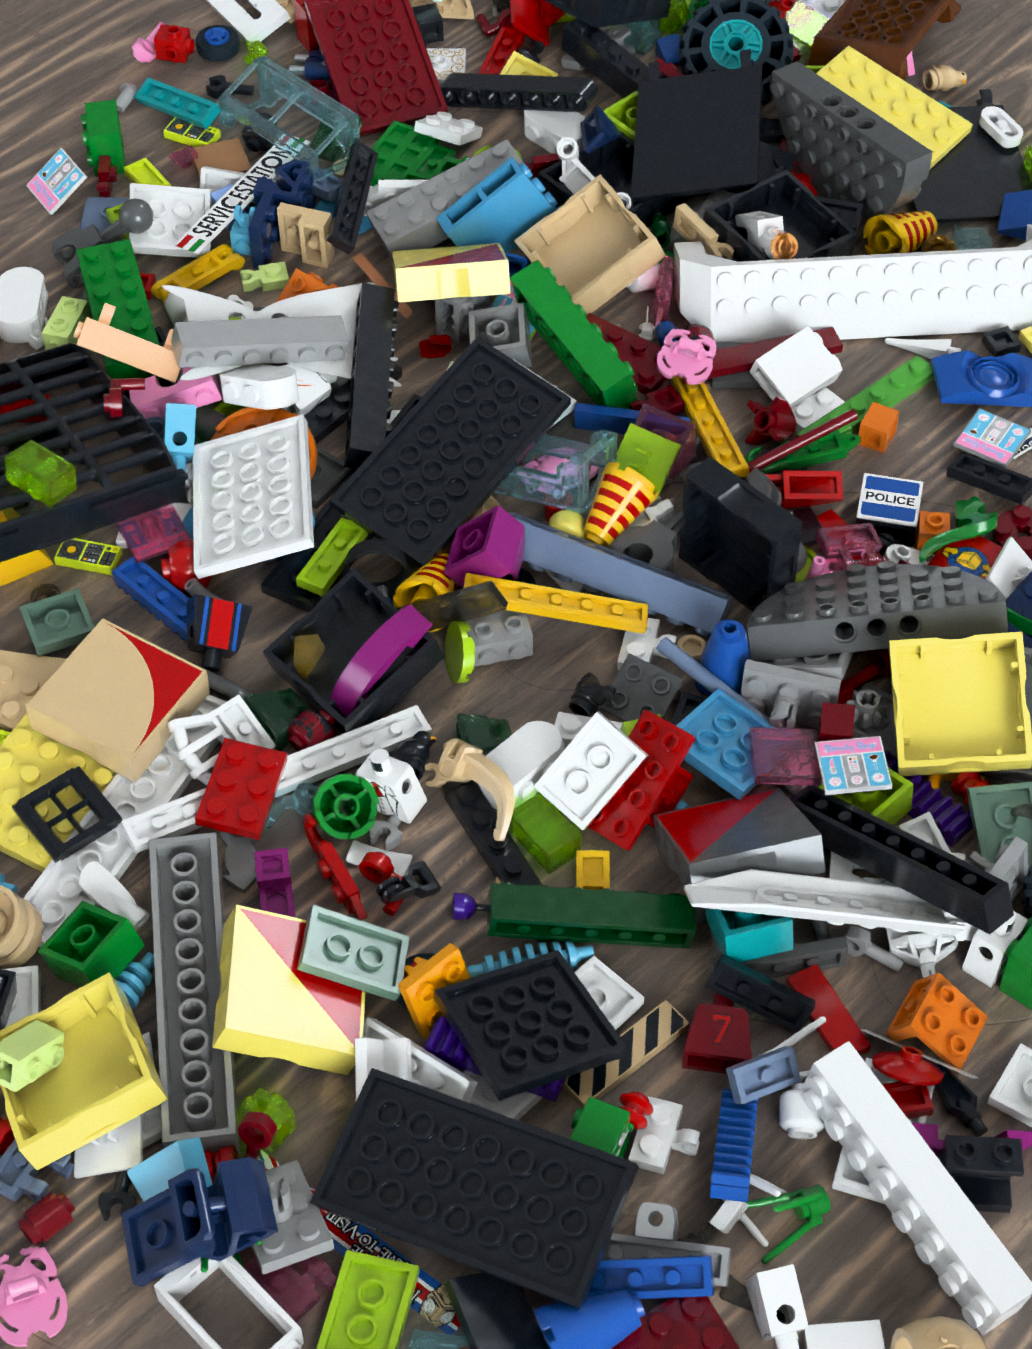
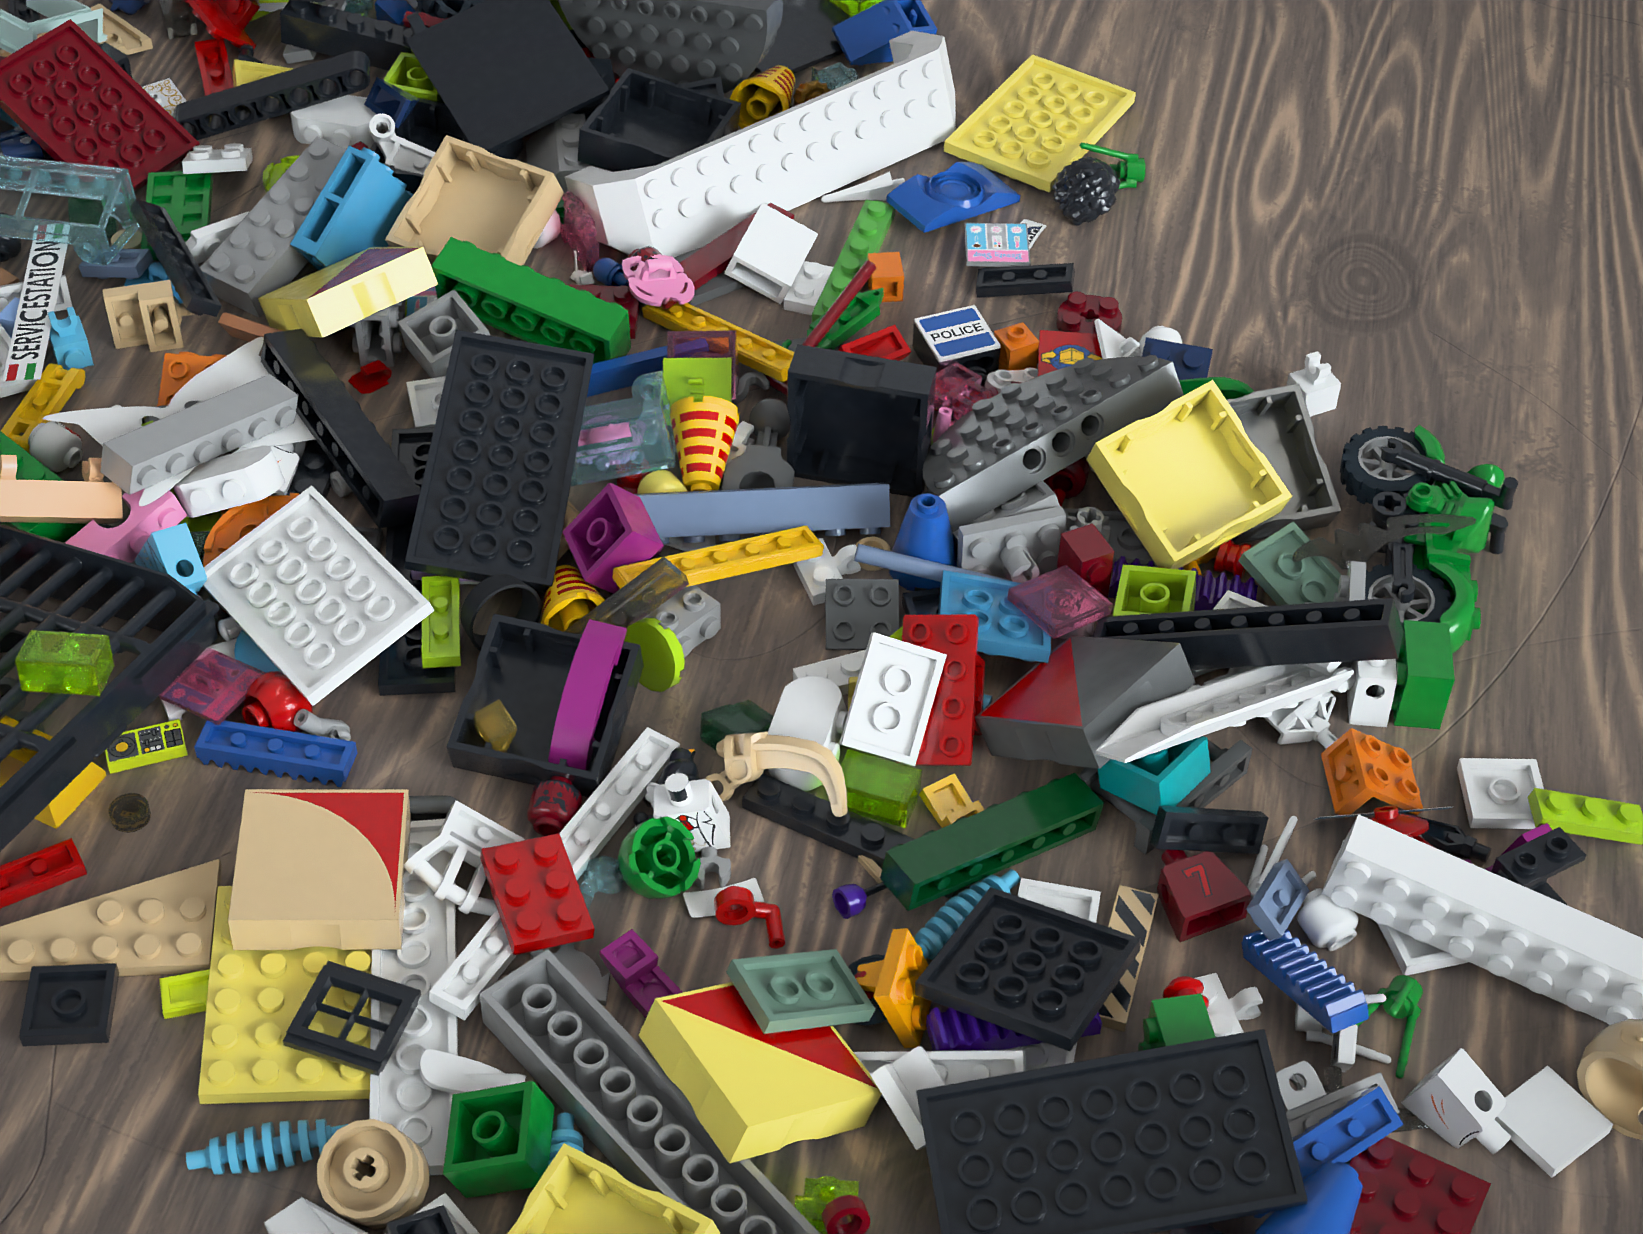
camera: 35 degrees left, 5 degrees down
(57, 621) = (173, 827): sand green plate -> none
(113, 400) = (81, 555): dark red plate -> none
(215, 628) = (368, 747): torso -> none
(269, 277) = (124, 379): yellowish green plate -> none
(274, 714) = (504, 802): clear green piece -> none
(292, 187) = (83, 289): dark blue piece -> none
(332, 867) = (690, 927): red plate -> none
(394, 889) = (784, 900): black piece -> none
(435, 161) = (228, 197): green plate -> none
(504, 18) = (193, 32): dark red plate -> none
(589, 695) = (814, 637): black animal -> none
(664, 399) = (653, 335): dark red plate -> none
(694, 229) = (574, 156): tan plate -> none
(767, 234) = (659, 132): white plate -> none
(771, 422) = (784, 310): dark red brick -> none
(839, 1023) = (1308, 836): red tile -> none
(853, 765) = (1136, 577): piece -> none
(860, 942) = (1253, 737): light grey bar -> none
(970, 524) = (1052, 323): green piece -> none
(1001, 342) = (933, 159): black plate -> none

